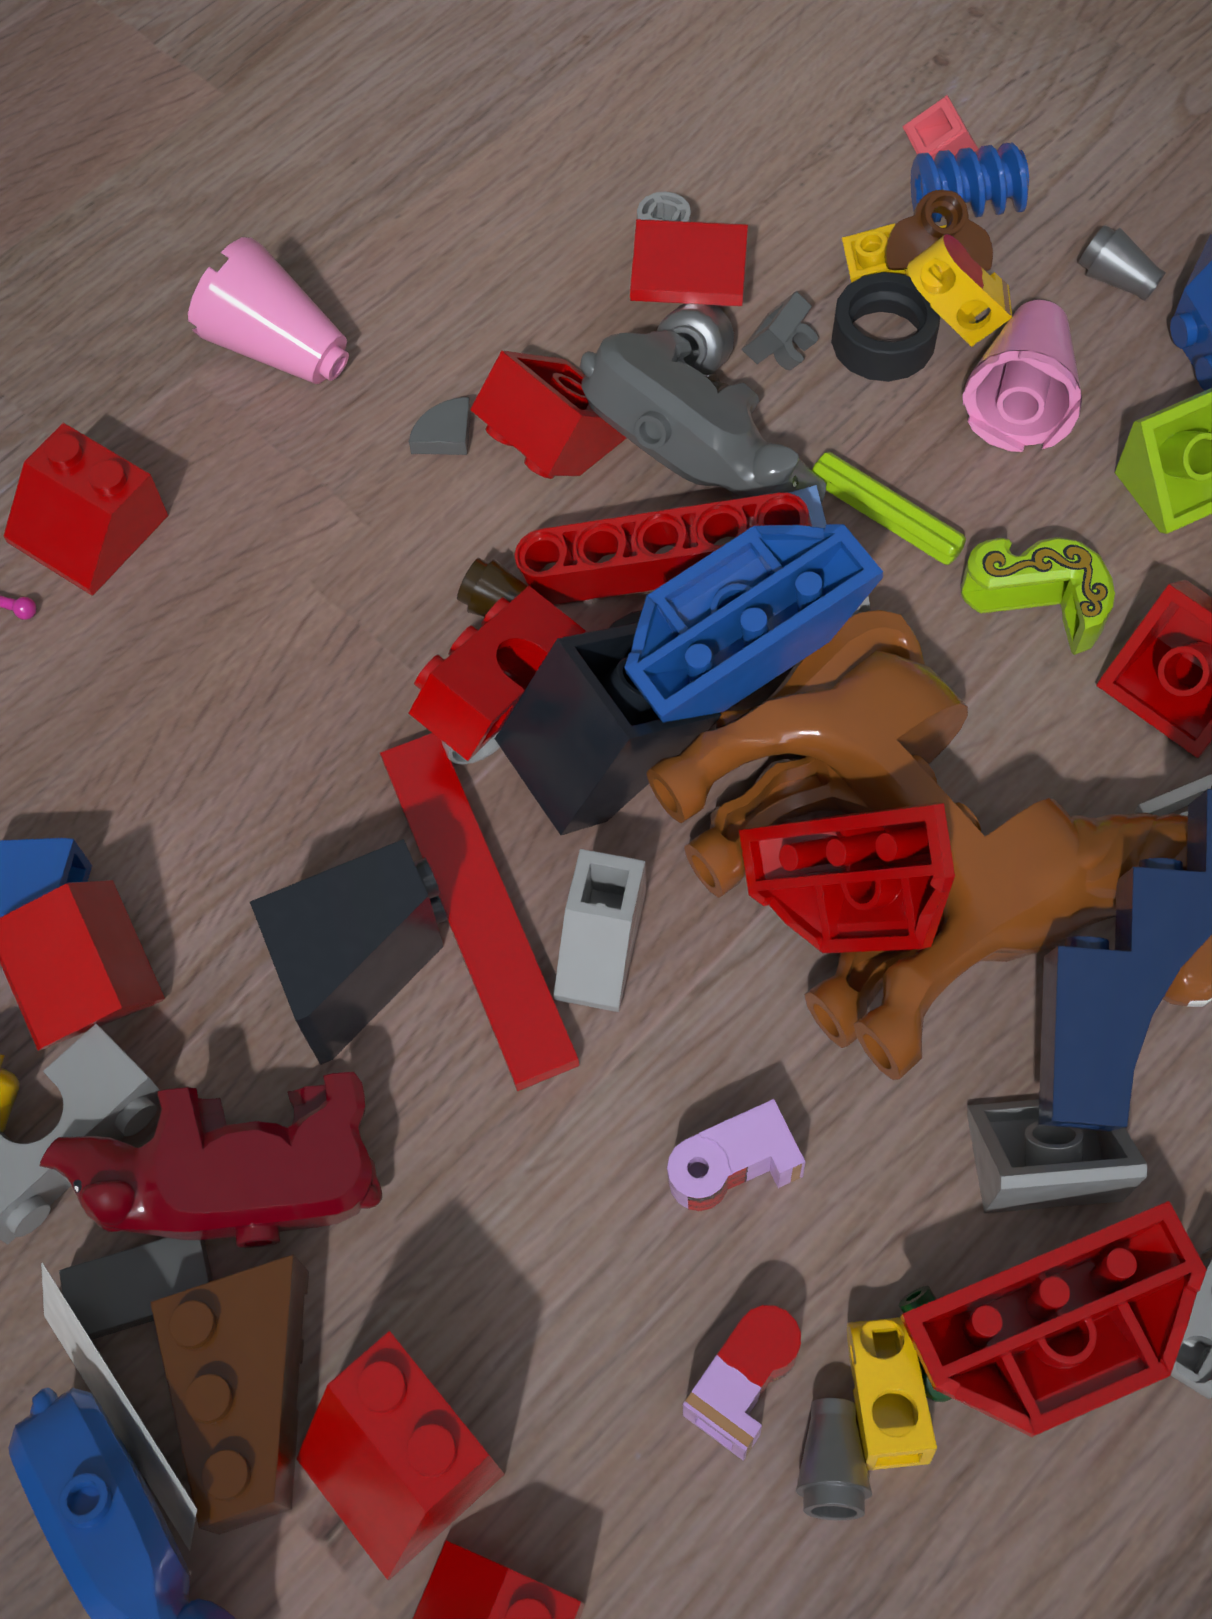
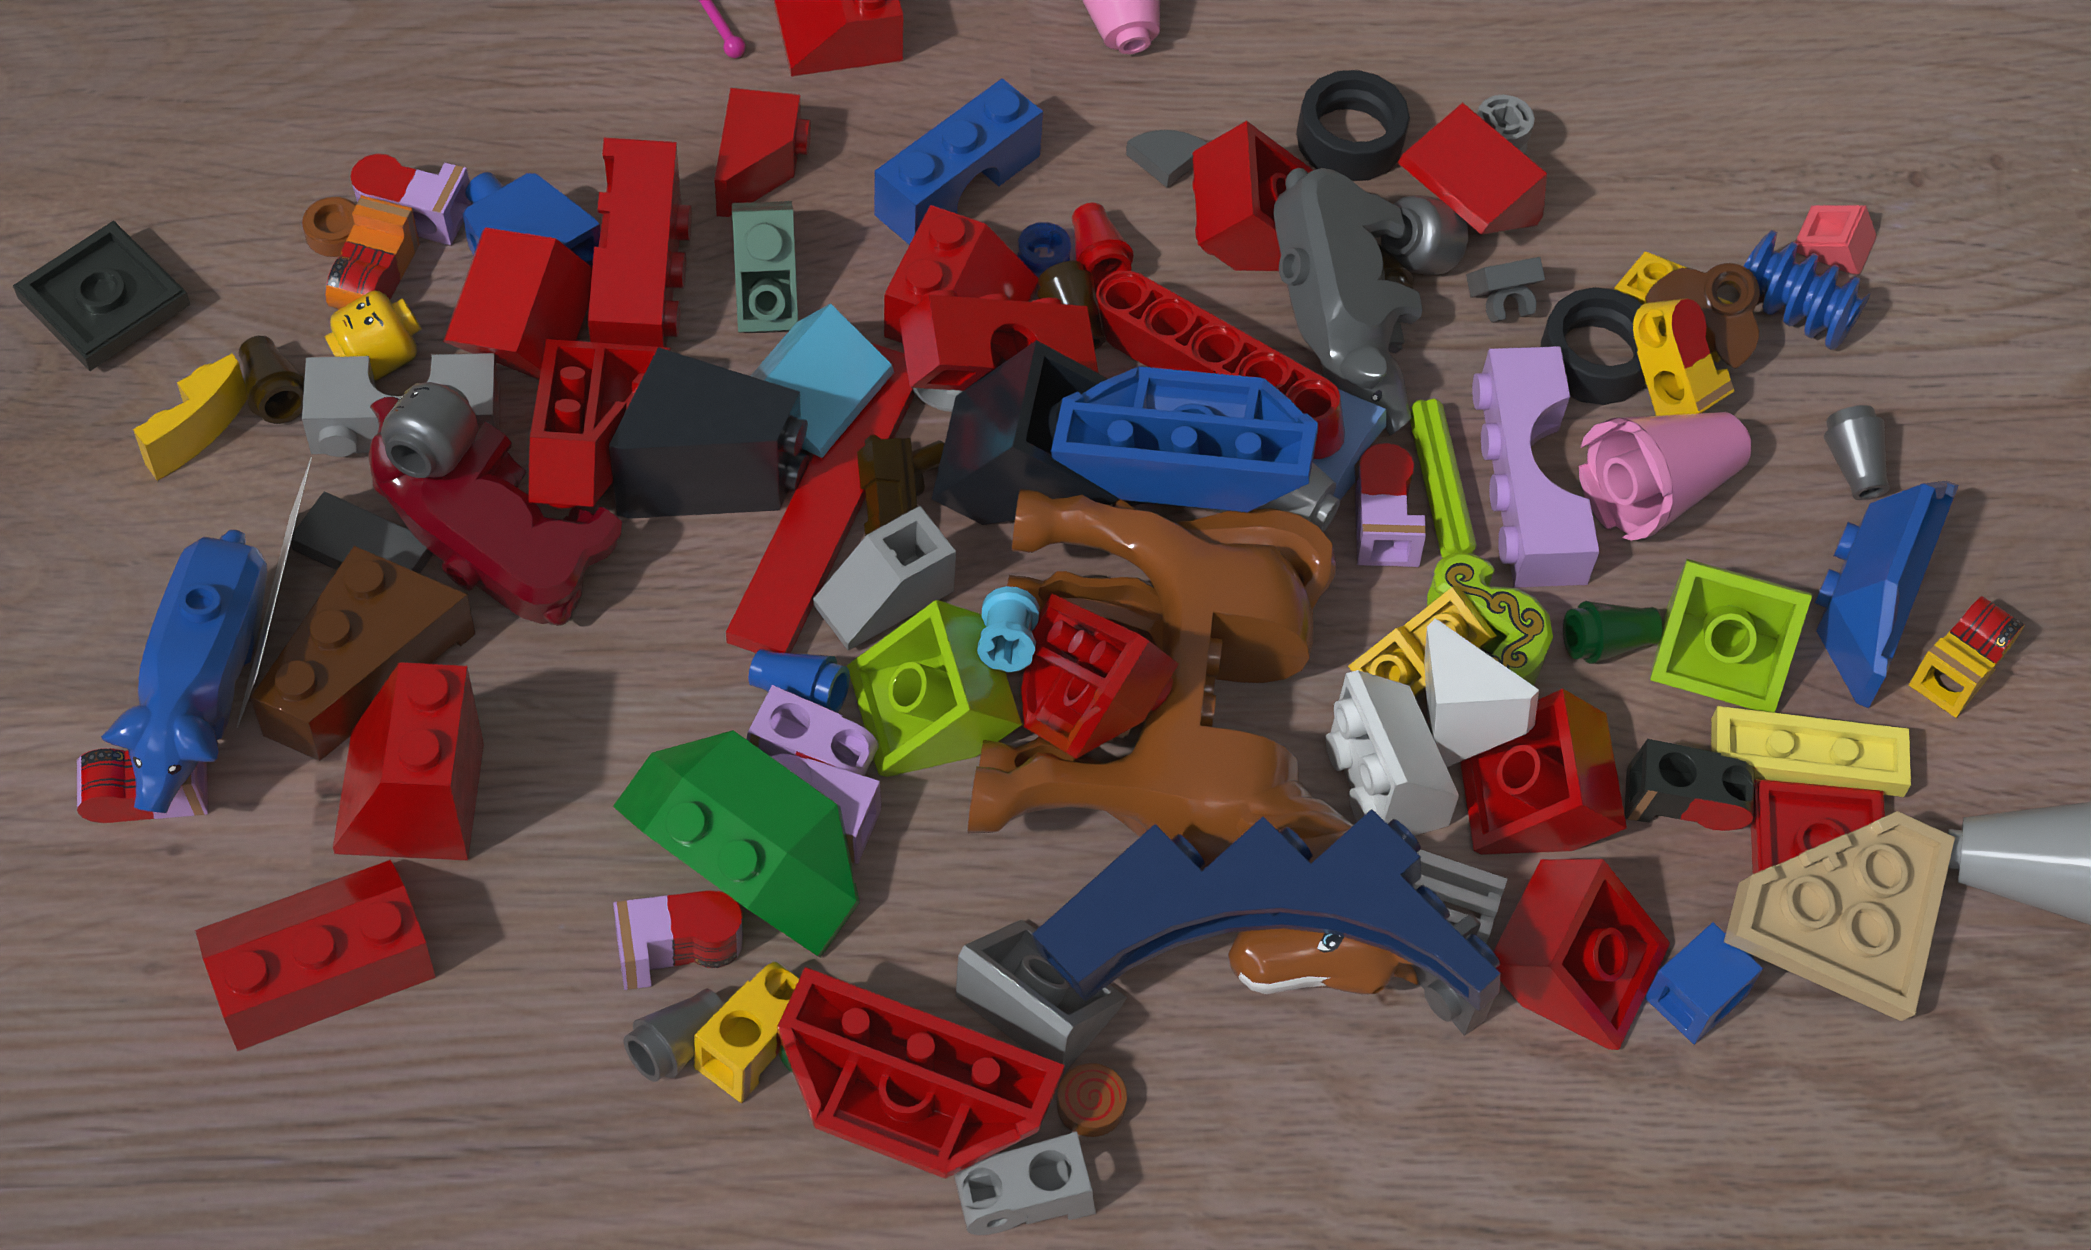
camera: 35 degrees right, 5 degrees down
(125, 834) = (639, 245): none -> red wedge
(128, 1146) = (429, 430): none -> flat silver head
(131, 669) = (758, 146): none -> red slope
(231, 1010) = (575, 416): none -> red wedge
(235, 759) = (765, 266): none -> sand green slope
(296, 581) = (988, 135): none -> blue arch
(369, 802) = (831, 370): none -> medium azure slope
(388, 642) = (958, 257): none -> red slope
(431, 557) = (1043, 235): none -> clear blue bush
(472, 534) = (1099, 243): none -> red cone
(516, 848) = (893, 476): none -> dark brown piece
(547, 273) = (1362, 93): none -> black tyre
(615, 1070) = (805, 675): none -> blue cone
(664, 1114) = (811, 731): none -> lavender leg
(711, 1241) = (749, 833): none -> green wedge
(723, 988) = (931, 693): none -> lime slope
(751, 893) = (1008, 638): none -> medium azure bush
(905, 571) = (1382, 525): none -> leg
(993, 484) = (1545, 530): none -> lavender arch
(1019, 642) = (1402, 651): none -> yellow slope
(1092, 745) = (1389, 755): none -> white slope
(1106, 646) = (1472, 697): none -> white slope
(1112, 520) = (1606, 630): none -> dark green cone
(1179, 1186) = (1091, 1100): none -> dark orange tile

